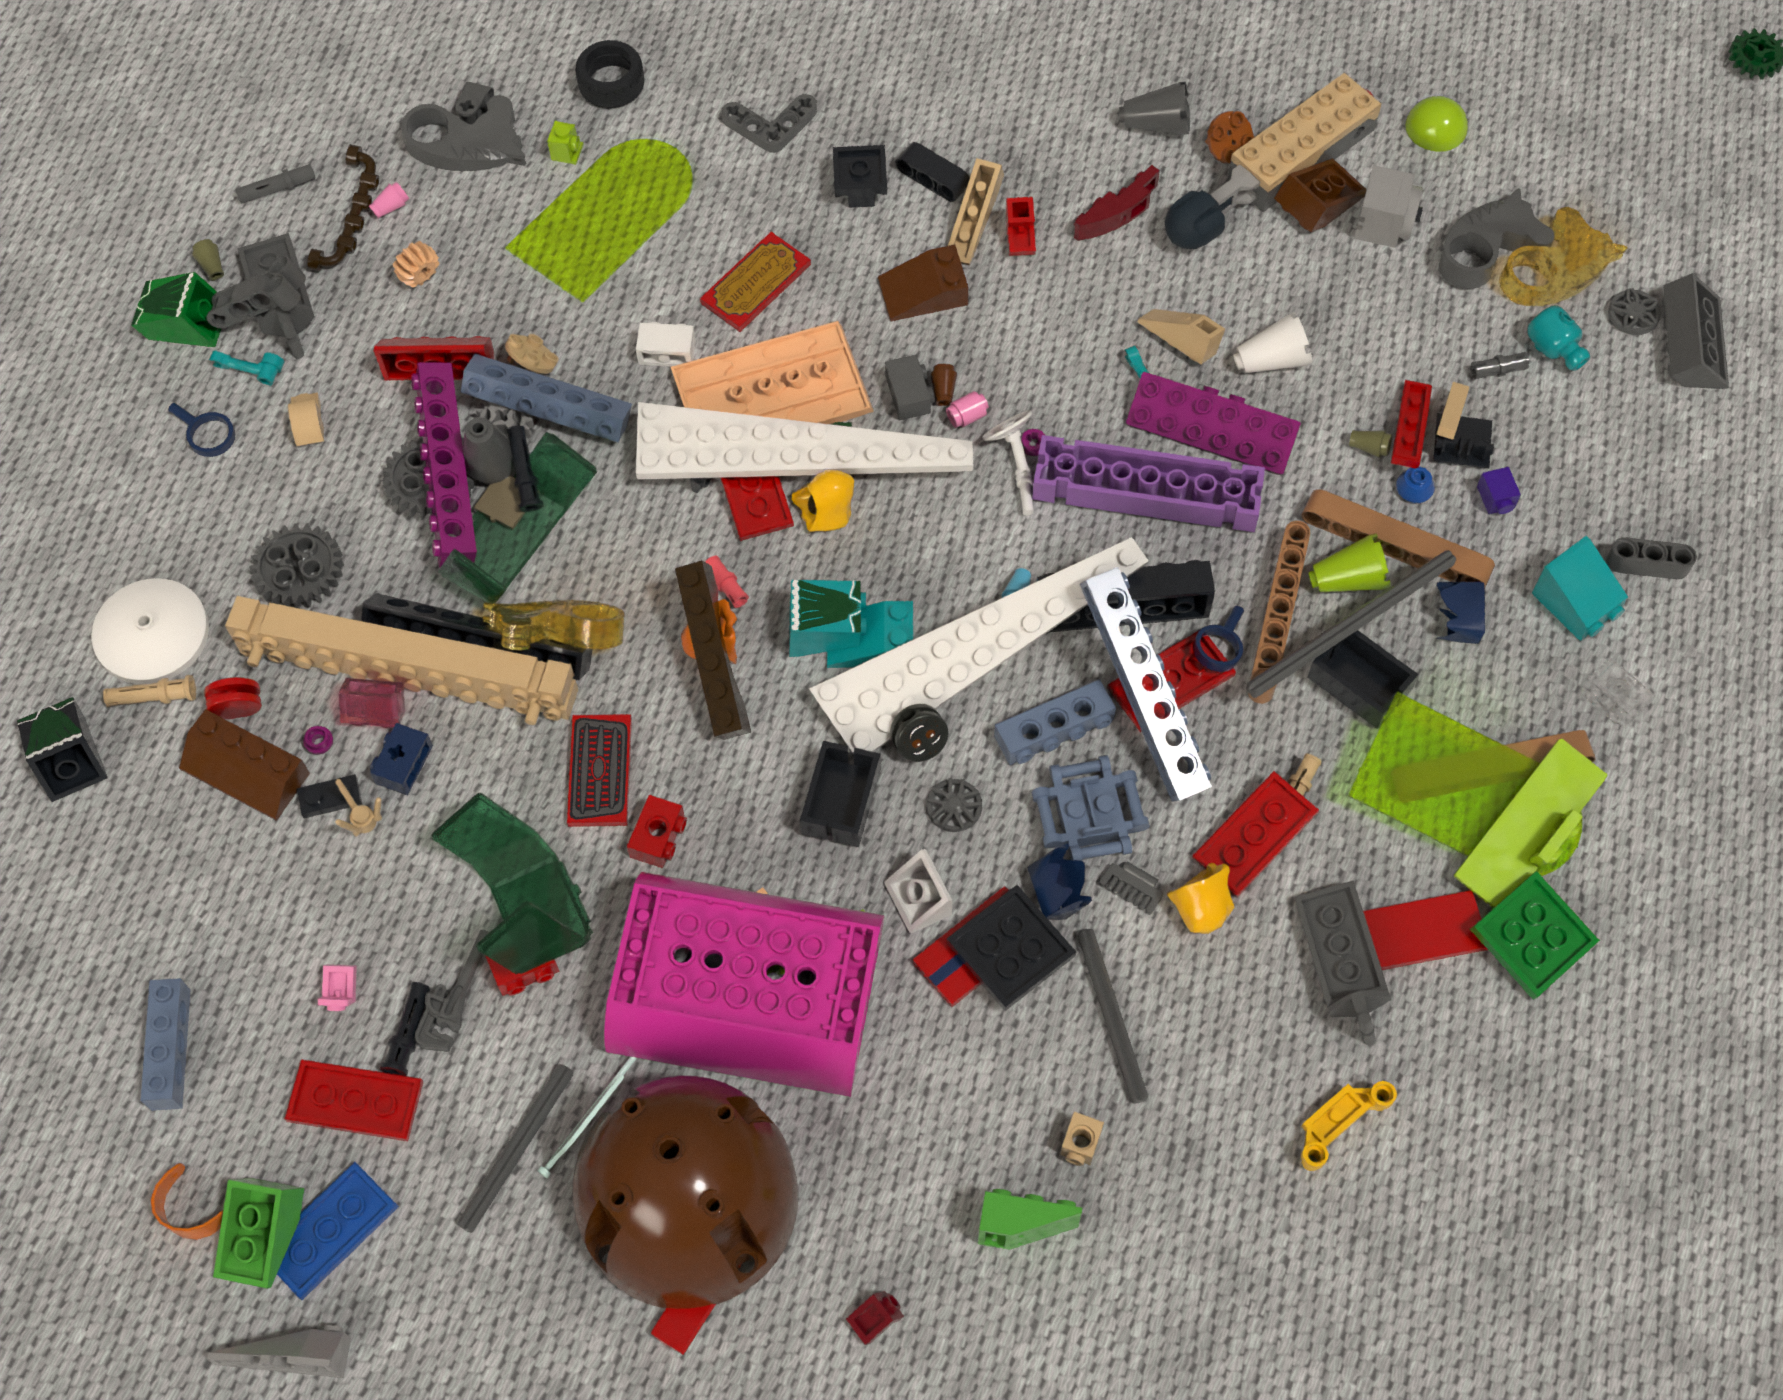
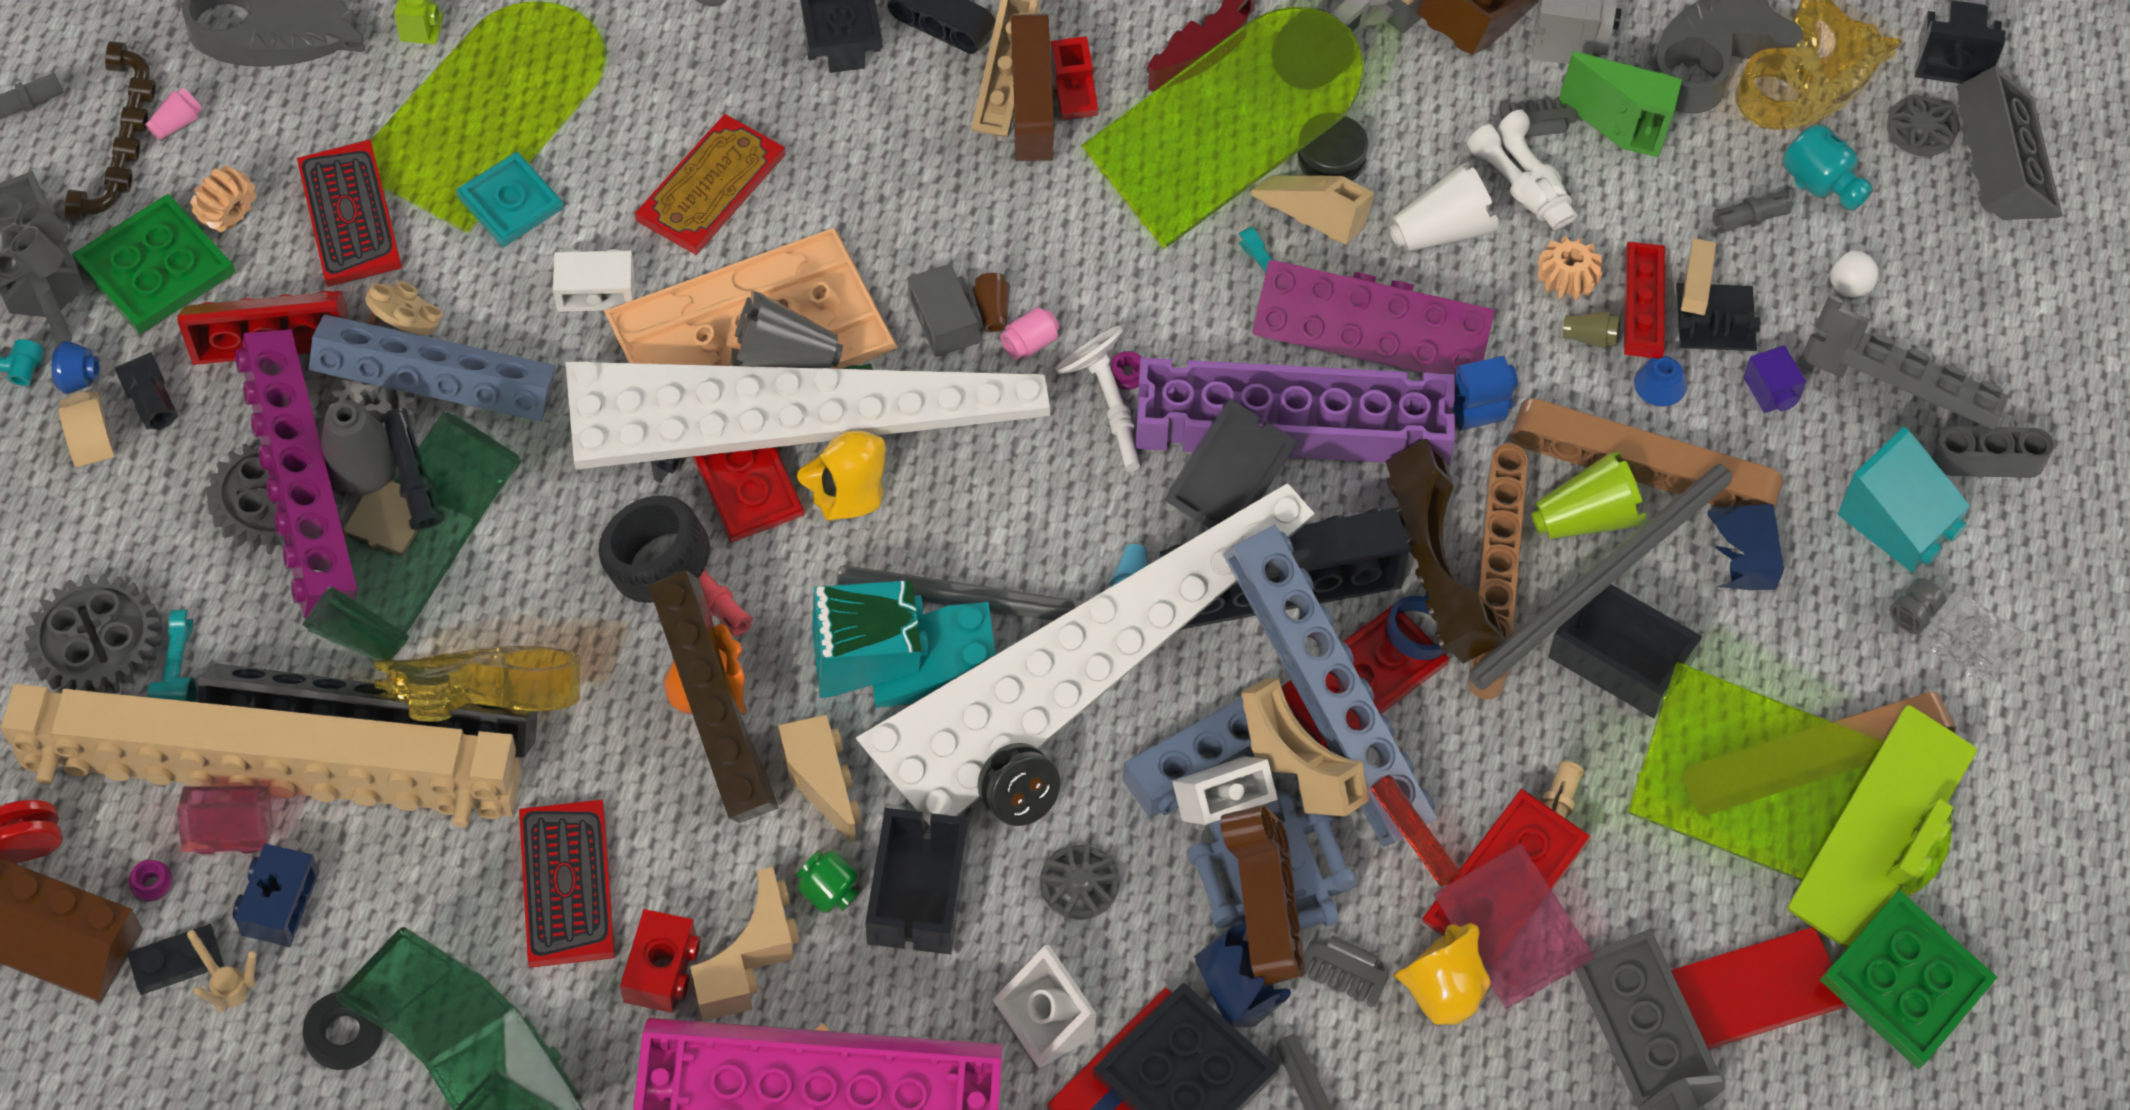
camera: 10 degrees left, 5 degrees down
(302, 375) = (73, 367): none -> blue cone
(346, 607) = (172, 685): none -> teal brick
(349, 392) = (145, 386): none -> black piece
(364, 306) = (153, 263): none -> green plate
(430, 874) = (332, 1055): none -> black tyre
(502, 281) = (349, 213): none -> tile
(614, 281) = (509, 199): none -> teal tile
(676, 523) = (639, 525): none -> black tyre
(702, 849) = (728, 979): none -> tan arch
(779, 707) = (814, 769): none -> tan slope
(779, 787) = (828, 881): none -> green head
(791, 398) = (781, 337): none -> dark grey cone
(896, 592) = (962, 593): none -> dark grey axle
(925, 284) = (950, 168): reddish brown slope -> none
(989, 230) = (1032, 87): none -> reddish brown beam
(1062, 751) = (1224, 789): none -> white brick
(1083, 827) = (1267, 891): none -> reddish brown beam
(1095, 519) = (1230, 465): none -> black piece
(1106, 723) = (1325, 779): none -> tan arch
(1129, 265) = (1230, 118): none -> clear neon green piece
(1194, 793) = (1415, 830): none -> clear red axle
(1200, 292) = (1336, 151): none -> pearl dark grey head
(1232, 547) = (1423, 489): none -> dark brown arch
(1260, 867) = (1521, 925): none -> clear pink piece
(1285, 481) = (1483, 392): none -> blue brick
(1345, 334) = (1540, 185): none -> white piece
(1353, 286) = (1543, 121): none -> dark grey piece
(1360, 395) = (1569, 268): none -> light nougat gear
(1414, 276) = (1622, 101): none -> bright green slope
(1568, 418) = (1854, 274): none -> white piece
(1578, 668) = (1920, 603): none -> dark grey wheel
(1592, 491) = (1907, 370): none -> dark grey hinge
(1669, 256) = (1959, 47): none -> black panel

